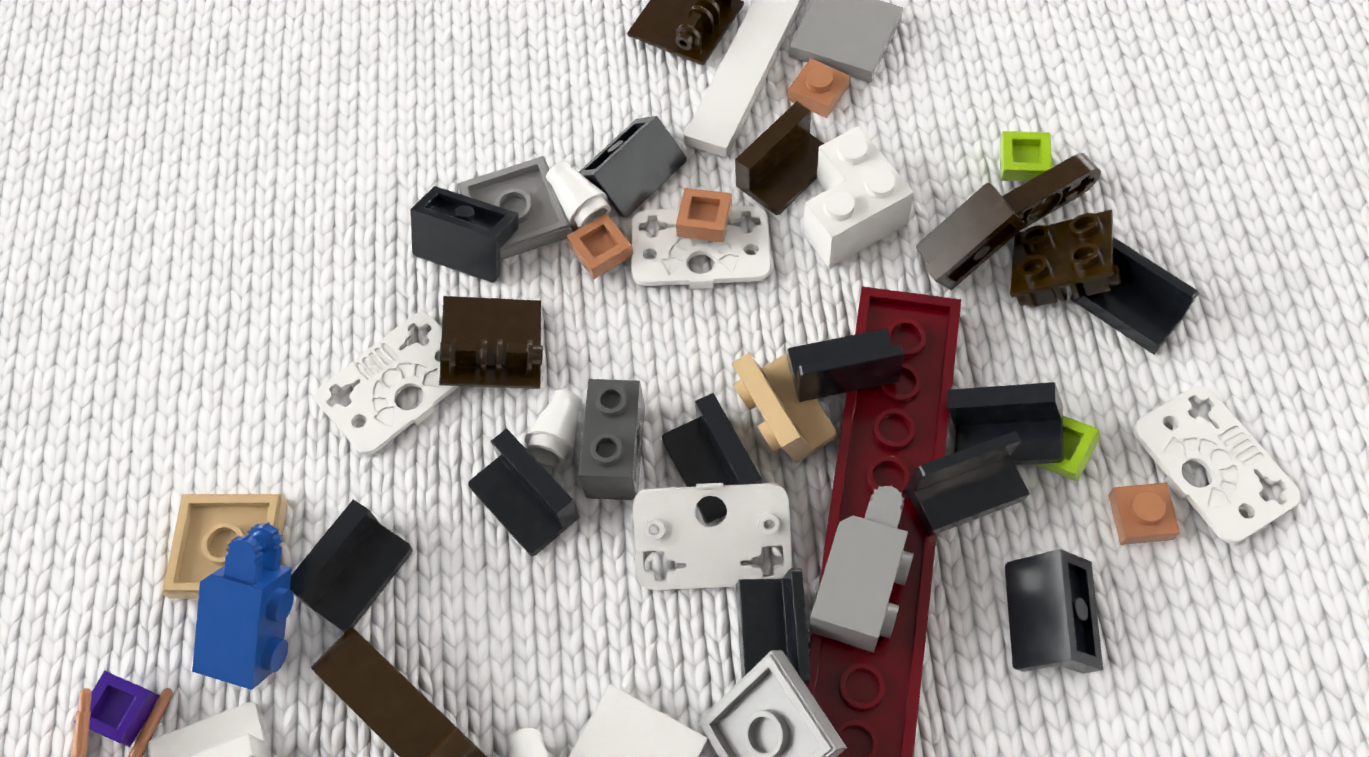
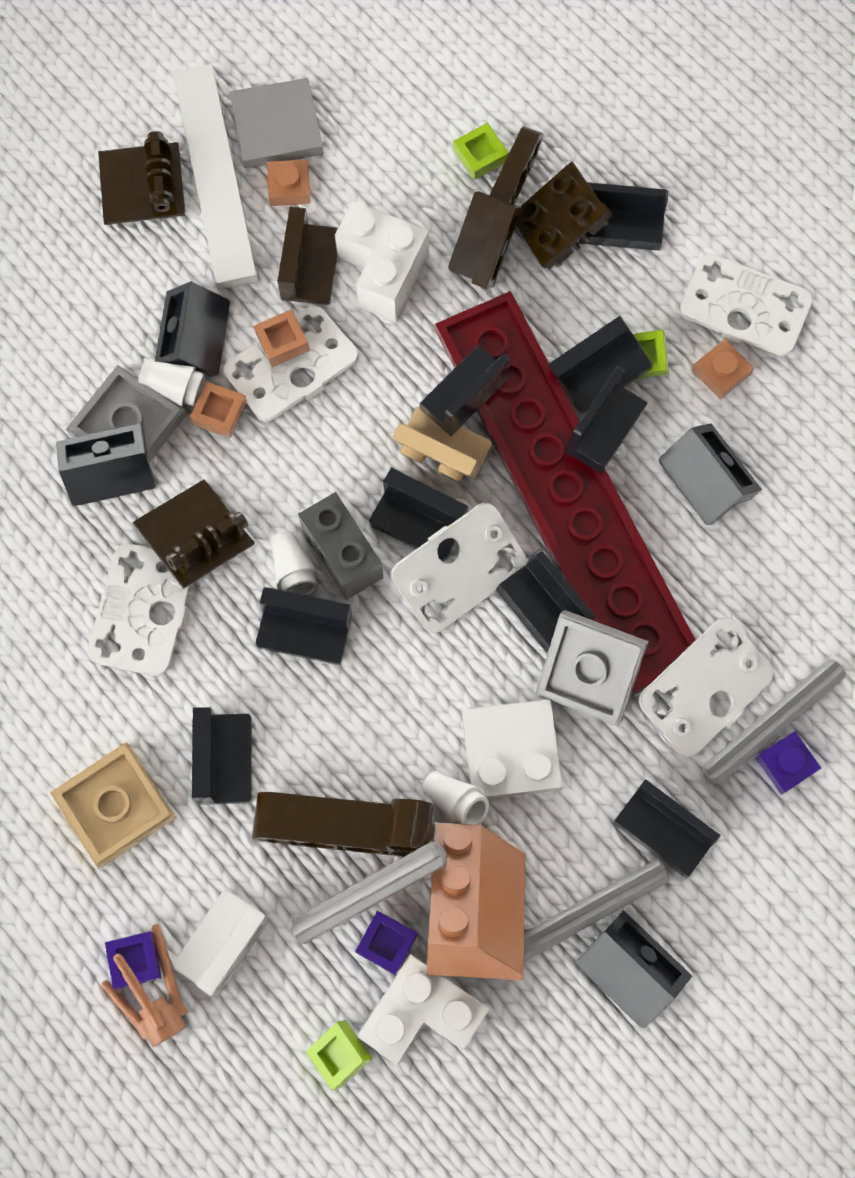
camera: 40 degrees left, 10 degrees up
(244, 611) = (181, 831): blue hinge -> none
(861, 574) = (580, 525): light grey hinge -> none

